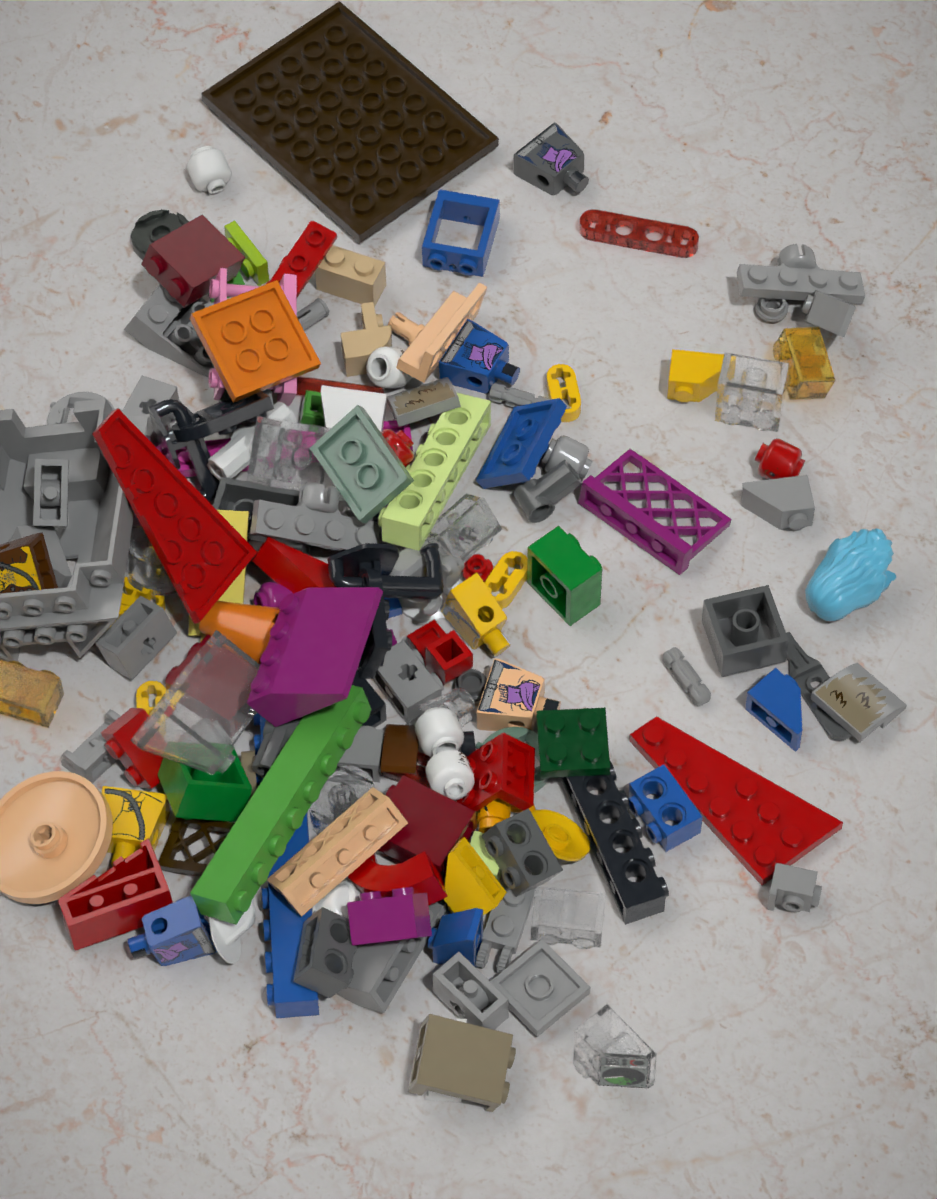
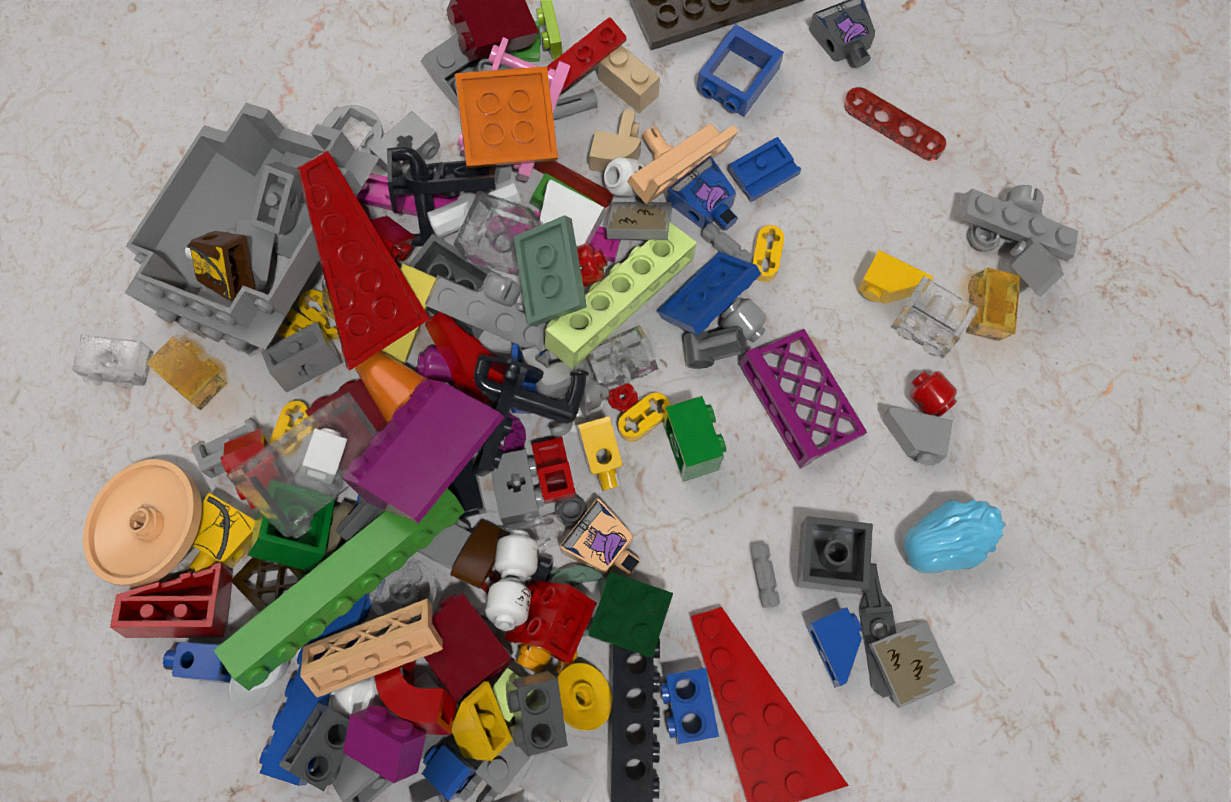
camera: 20 degrees right, 15 degrees up
(214, 698) = (323, 455): none -> white brick
(526, 316) = (764, 169): none -> blue plate

